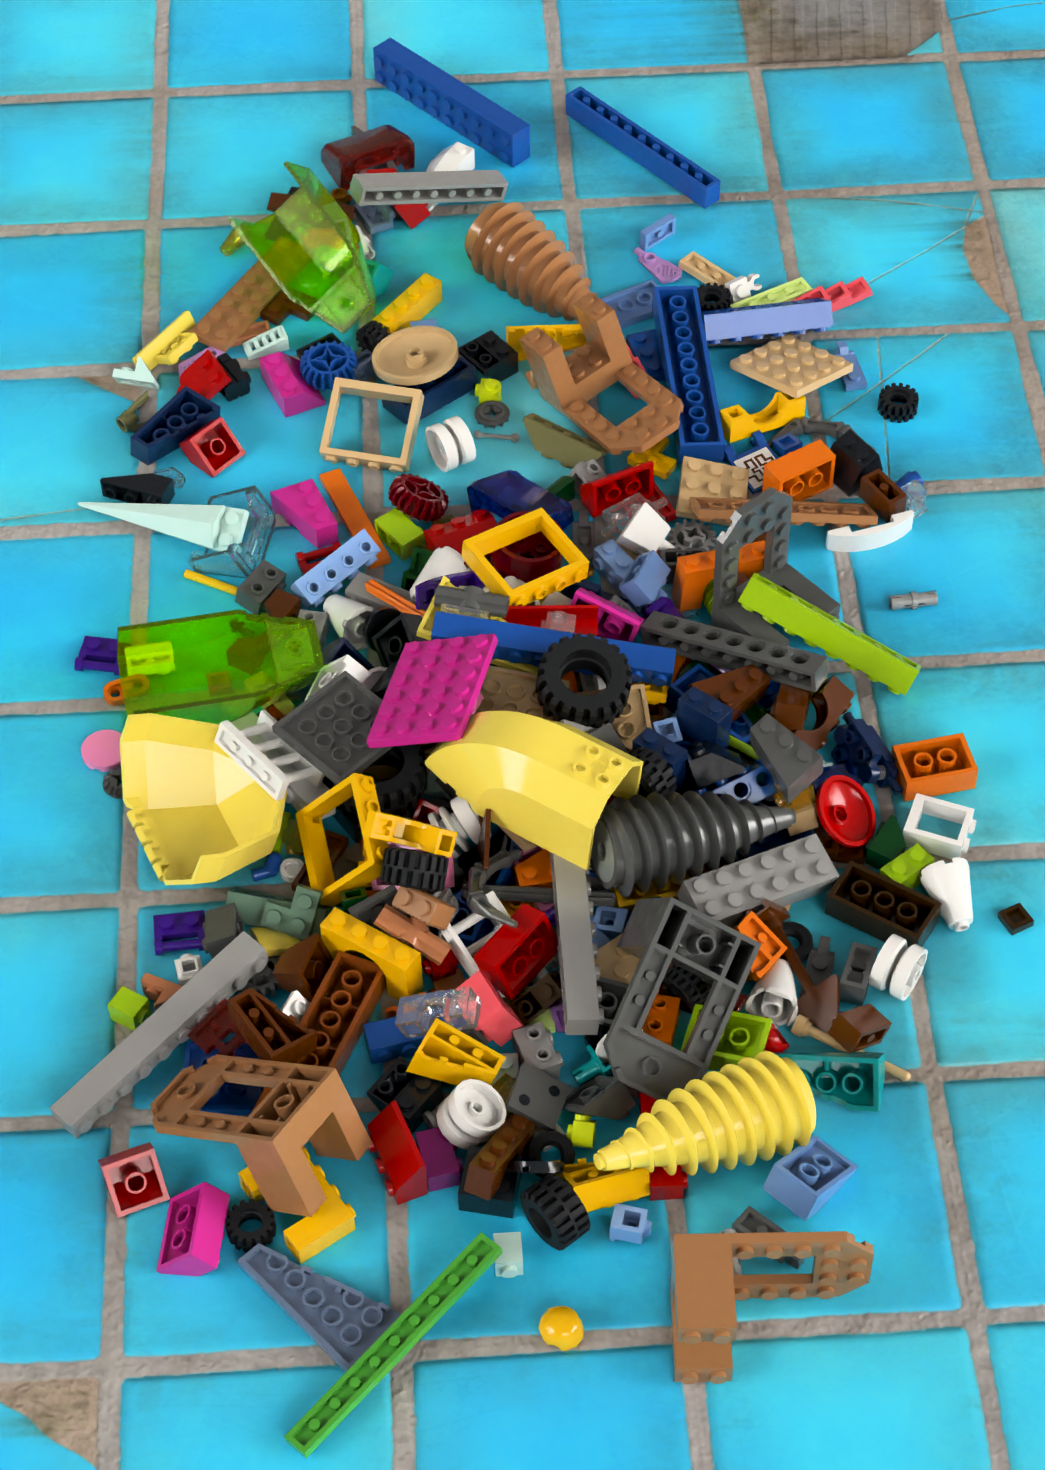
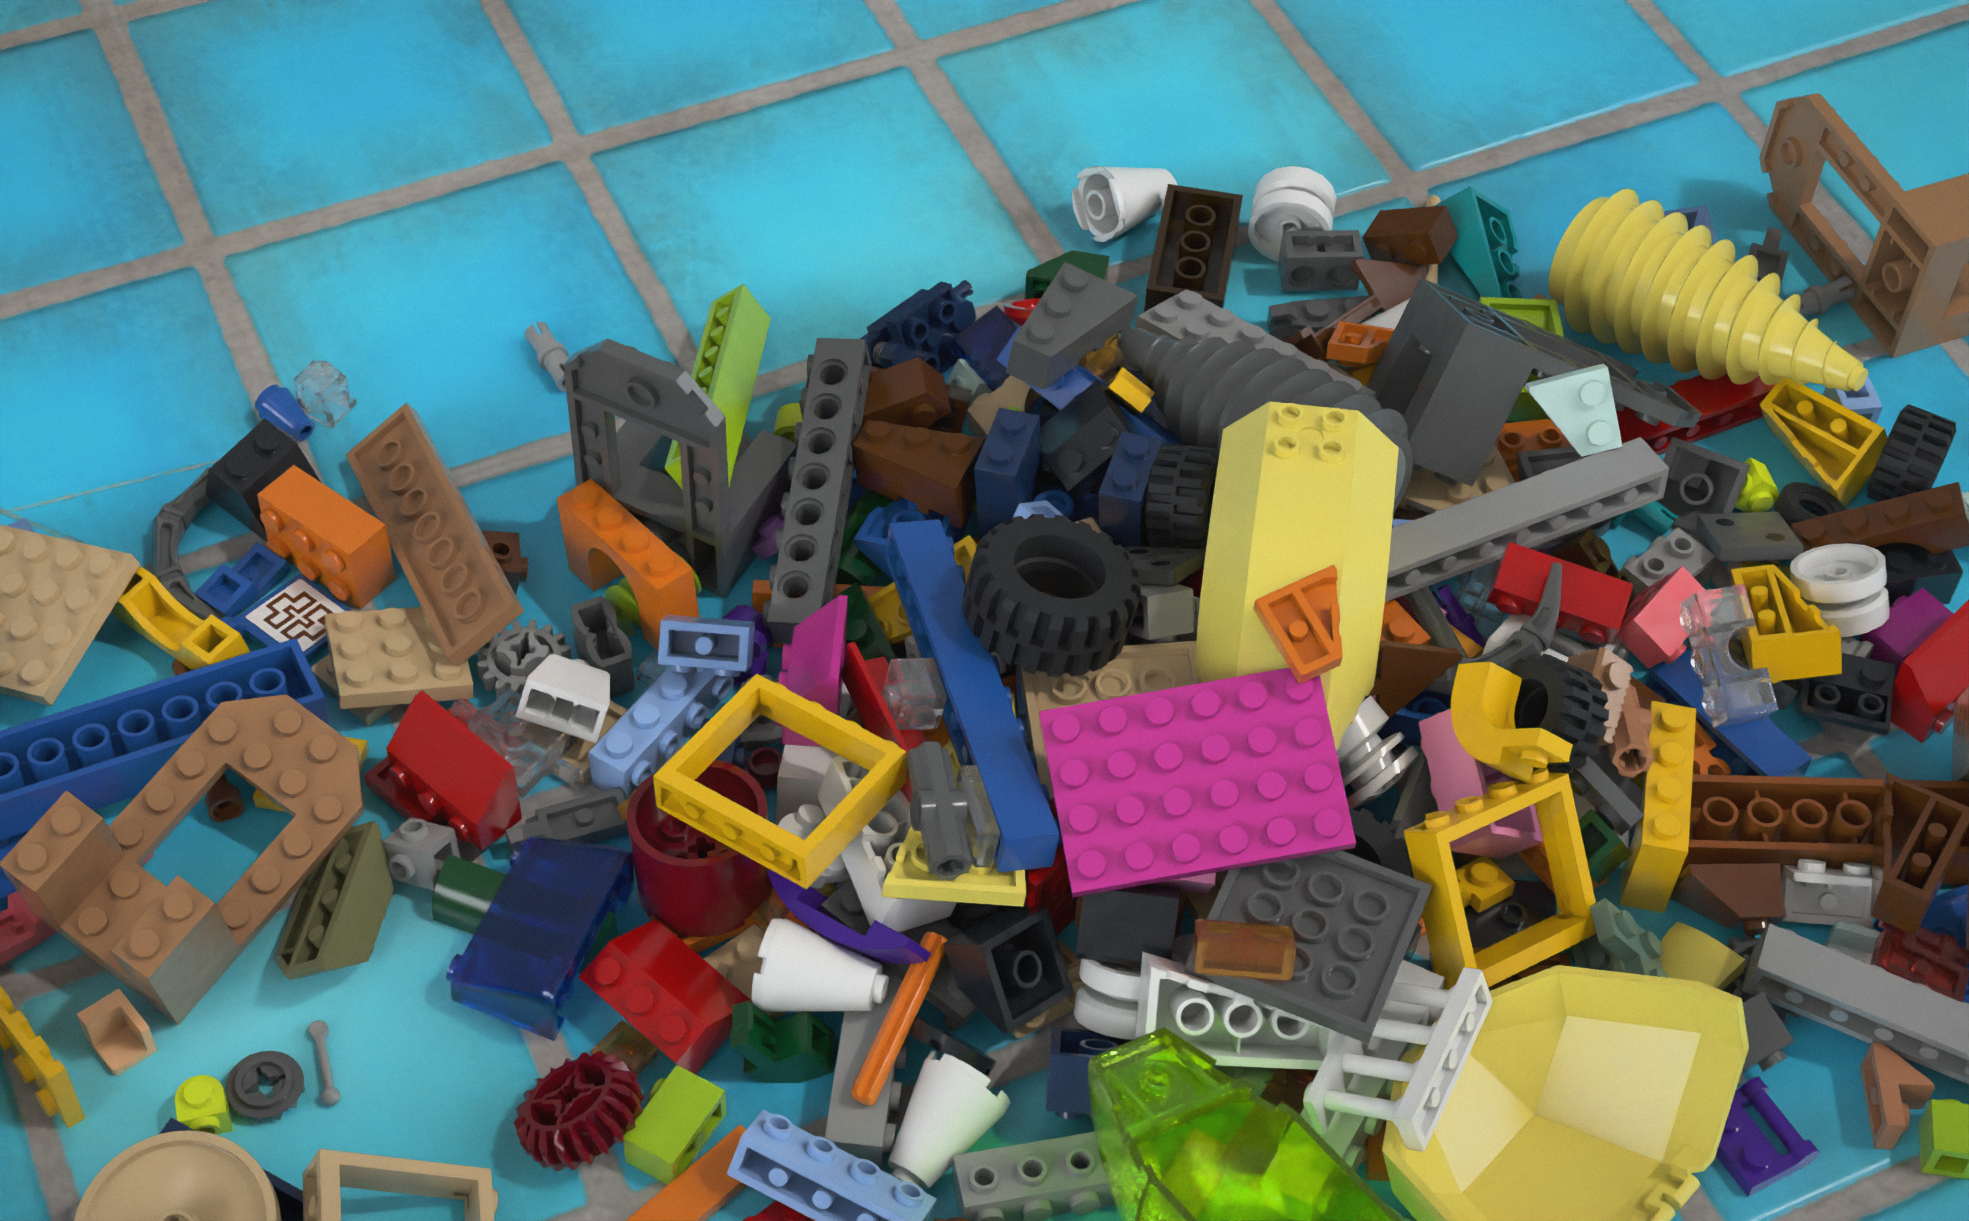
camera: 115 degrees left, 0 degrees up
(187, 967) = (1830, 1074): white window -> none
(340, 690) = (1244, 949): none -> clear orange slope
(450, 443) = (408, 1099): white wheel -> none
(474, 723) = (1305, 623): none -> orange wing
(491, 356) = (97, 1124): black slope -> none
(536, 1167) = (1881, 470): black tile -> none
(620, 976) = (1581, 408): none -> light aqua wing
(734, 783) = (1130, 391): none -> yellow slope
(845, 540) = (389, 395): white slope -> none
(882, 494) = (335, 423): reddish brown brick -> none
(898, 394) = (68, 448): black tyre -> none
(908, 866) = (1128, 249): lime brick -> none
(932, 842) = (989, 263): white window -> none
(935, 766) = (902, 248): orange brick -> none
(1015, 918) = (1116, 146): dark brown tile -> none

